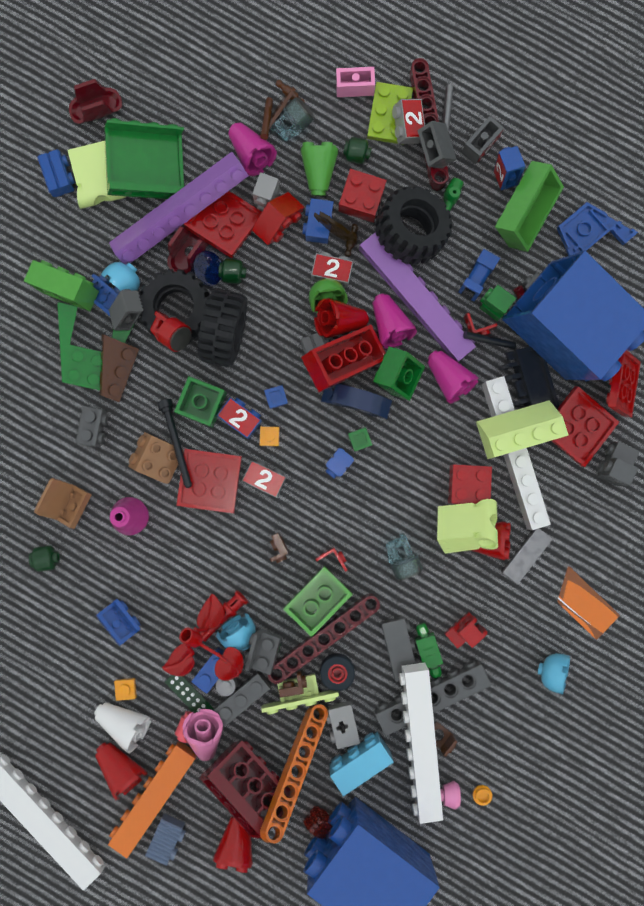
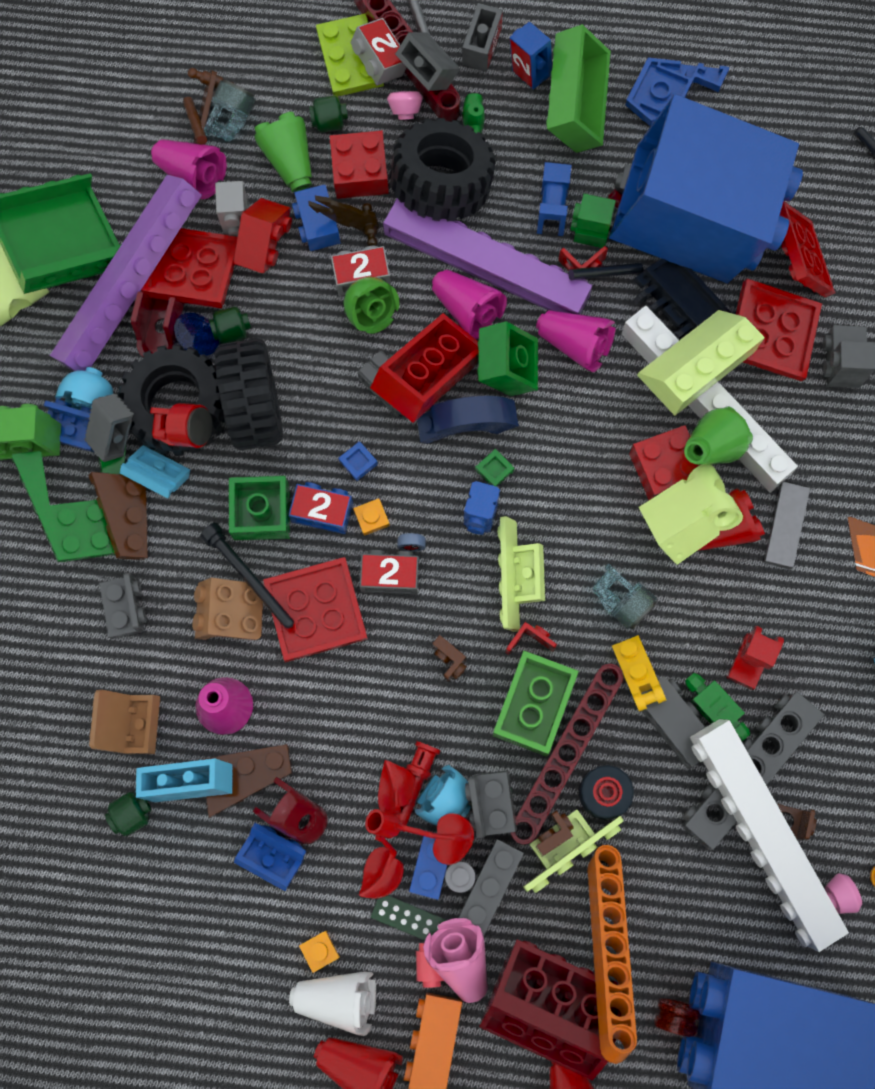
camera: 20 degrees left, 10 degrees down
(84, 555) = (184, 780): none -> medium azure brick
(122, 564) = (251, 773): none -> reddish brown wing
(143, 602) = (290, 812): none -> dark red piece
(145, 349) = (155, 471): none -> medium azure plate
(286, 464) = (411, 542): none -> sand blue tile
(338, 318) = (395, 322): red cone -> none
(346, 514) = (520, 574): none -> yellowish green bracket
(346, 736) = (663, 871): light grey brick -> none
(355, 81) = (289, 33): bright pink brick -> none
(360, 763) = (696, 902): medium azure brick -> none
(389, 609) = (638, 672): none -> yellow plate
(411, 165) = (405, 103): none -> bright pink cone
(507, 486) = (718, 438): none -> bright green cone

